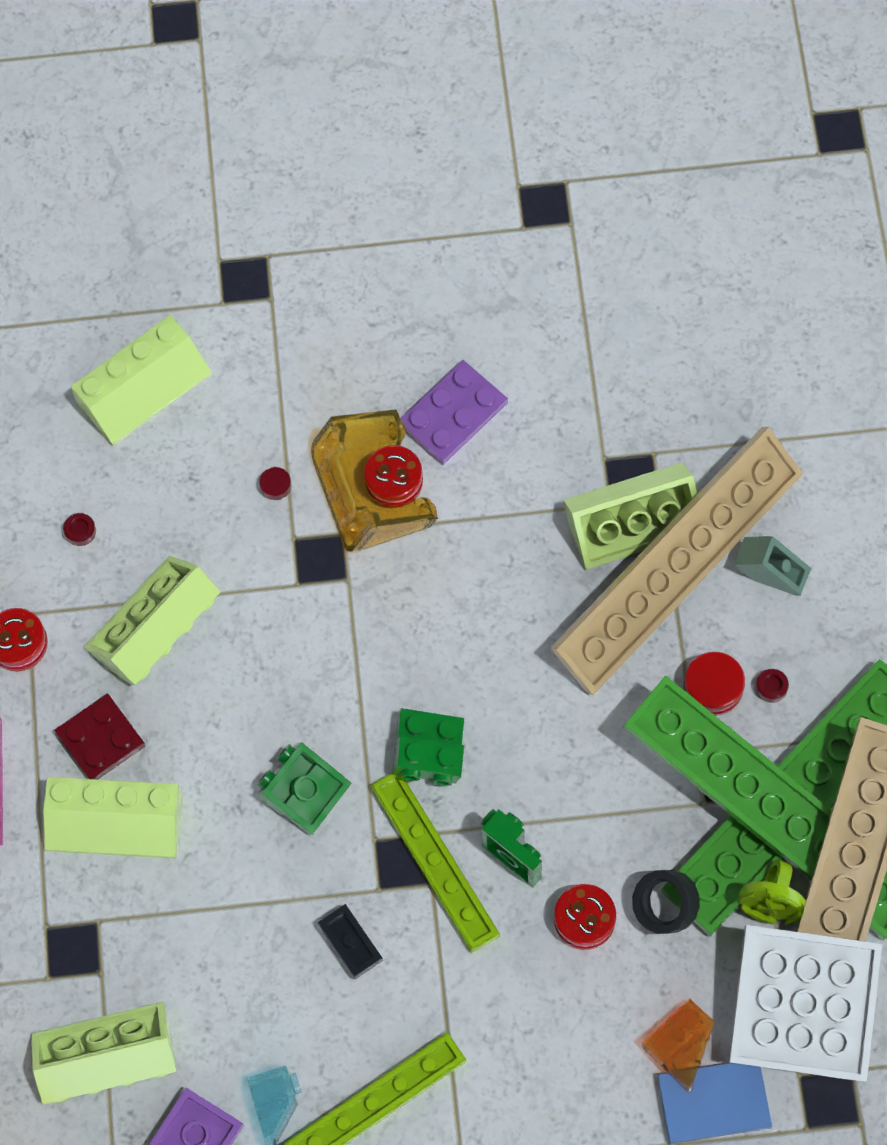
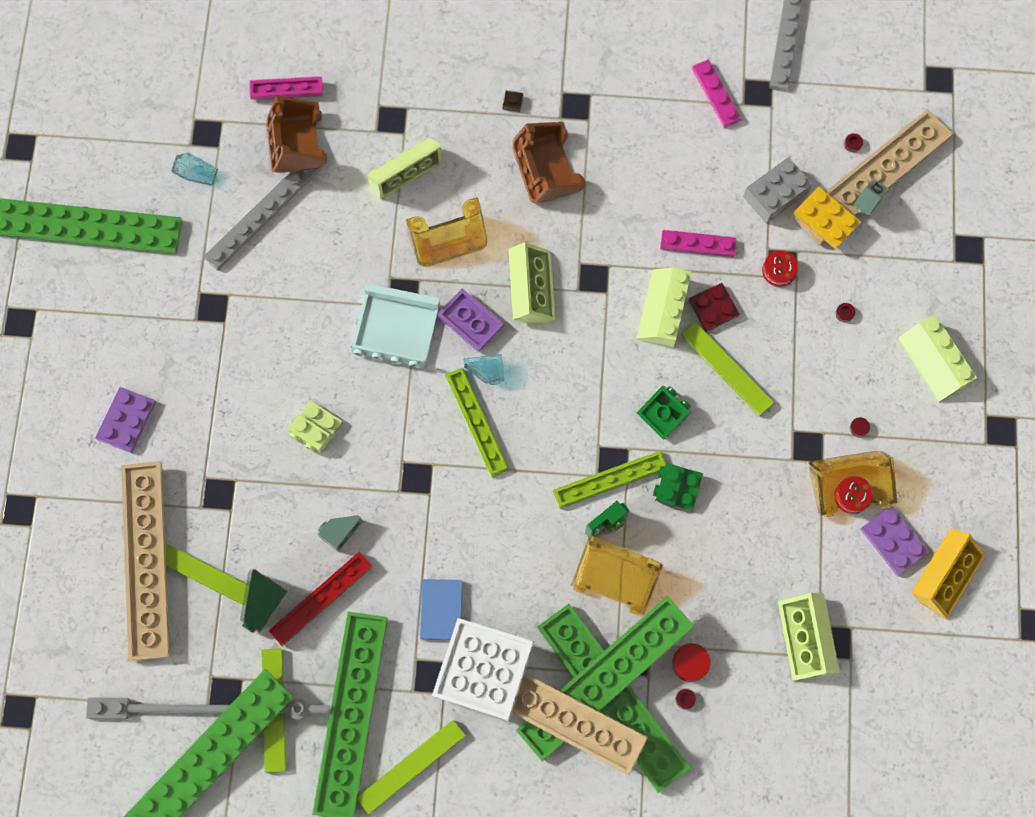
camera: 95 degrees right, 5 degrees up
(153, 619) = (781, 344): yellowish green slope -> none
(207, 701) = (727, 369): none -> lime tile
(350, 941) = (570, 424): black plate -> none
(490, 328) = (949, 573): none -> yellow slope
(584, 916) = (560, 556): red head -> none
(600, 820) = (617, 574): none -> clear yellow windscreen
(642, 903) = (563, 614): black tyre -> none
(676, 561) = (775, 657): tan plate -> none
(681, 1043) = (477, 597): clear orange wing -> none
(772, 564) = (762, 715): sand green slope -> none
(773, 896) = (548, 665): lime tile -> none

